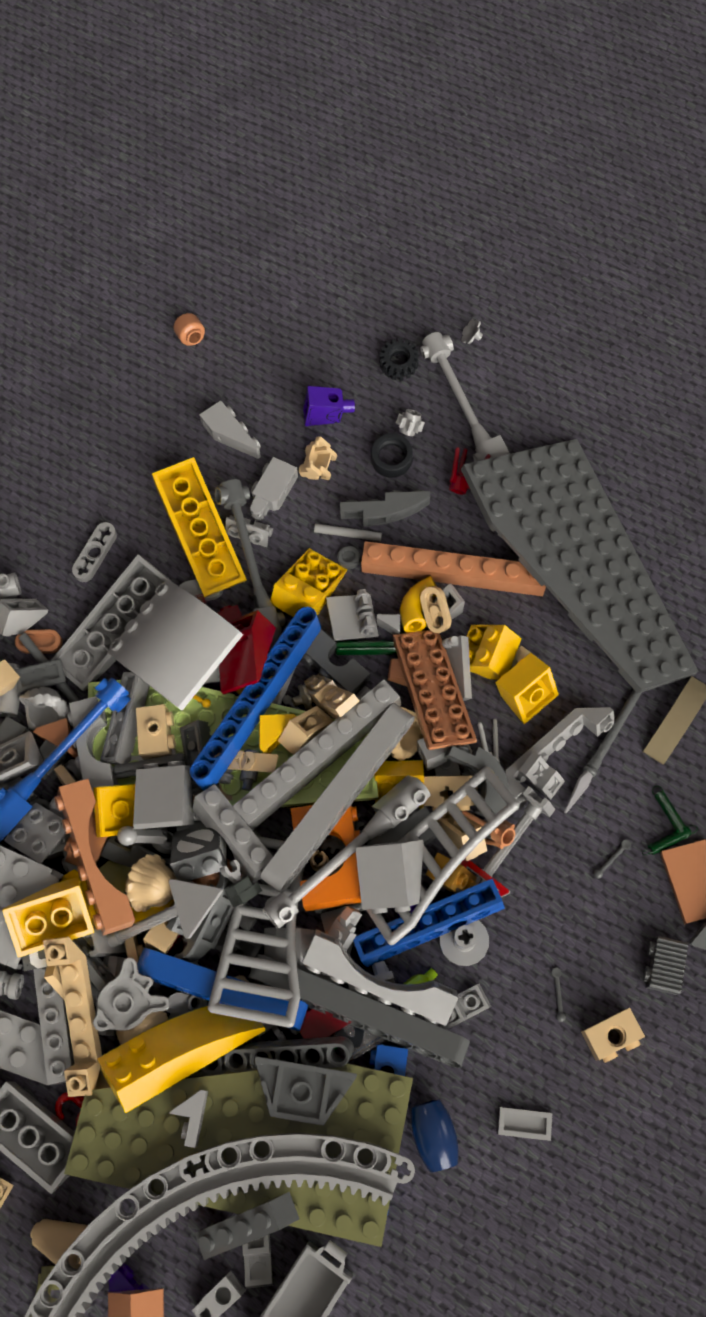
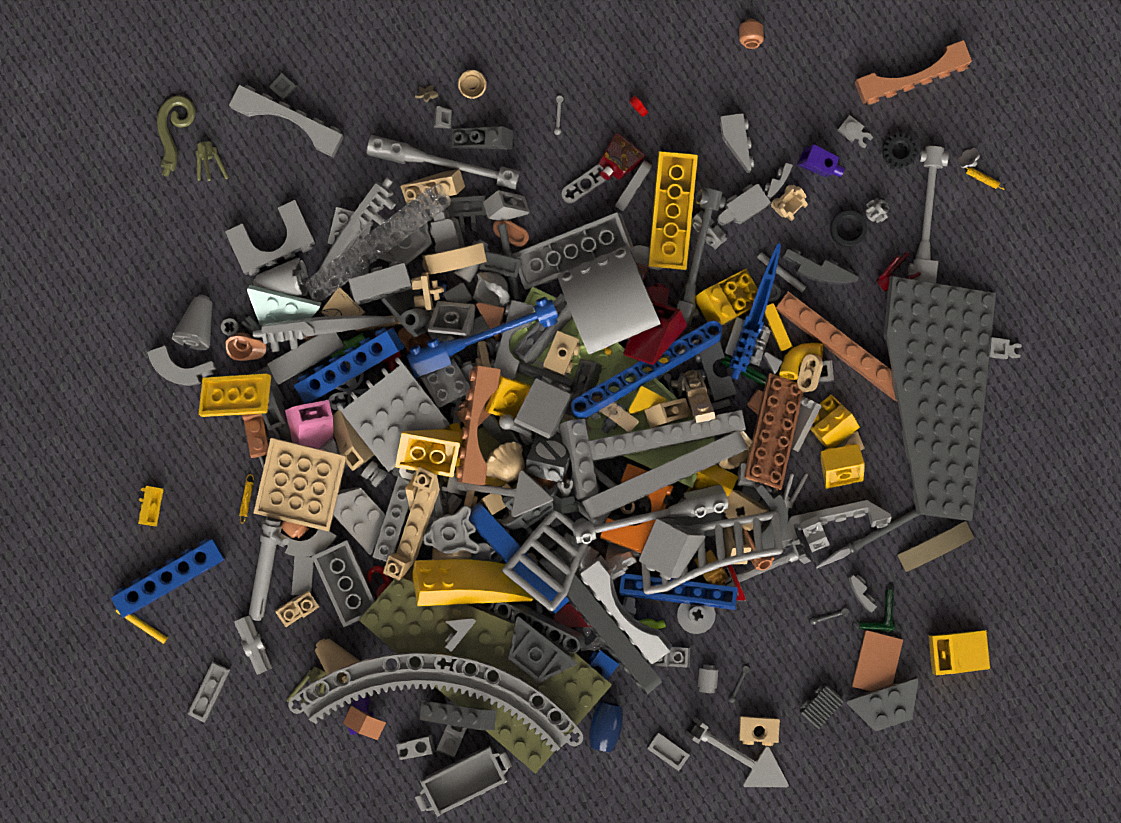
camera: 20 degrees right, 15 degrees up
(26, 487) = (559, 99): none -> light grey hinge
(109, 450) = (638, 106): none -> red tile
(117, 506) = (620, 158): none -> torso
(146, 523) = (633, 185): none -> light grey beam
(294, 447) = (775, 185): none -> light grey slope
(340, 315) = (873, 87): none -> nougat arch
(341, 366) = (853, 129): none -> light grey plate
(346, 592) = (753, 323): none -> blue piece
(374, 587) = (777, 328): none -> yellow piece
(495, 343) = (983, 178): none -> yellow piece
(520, 1008) = (707, 679): none -> light grey brick
(616, 487) = (1000, 348): none -> light grey plate
(625, 808) = (857, 584): none -> light grey slope
(649, 1080) = (764, 771): none -> light grey piece

